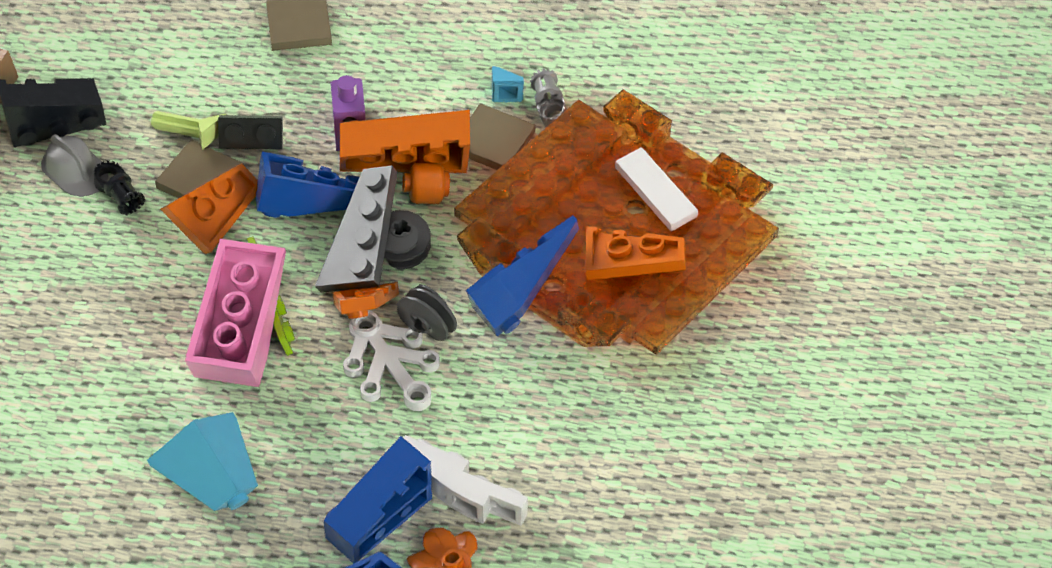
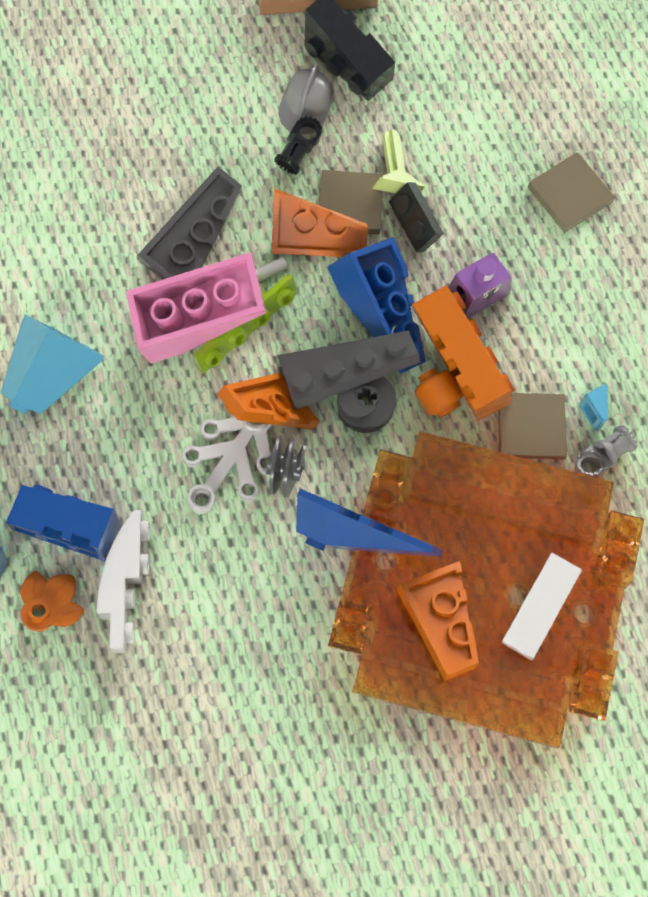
camera: 60 degrees right, 20 degrees up
(149, 304) = (193, 229): none -> dark grey wing

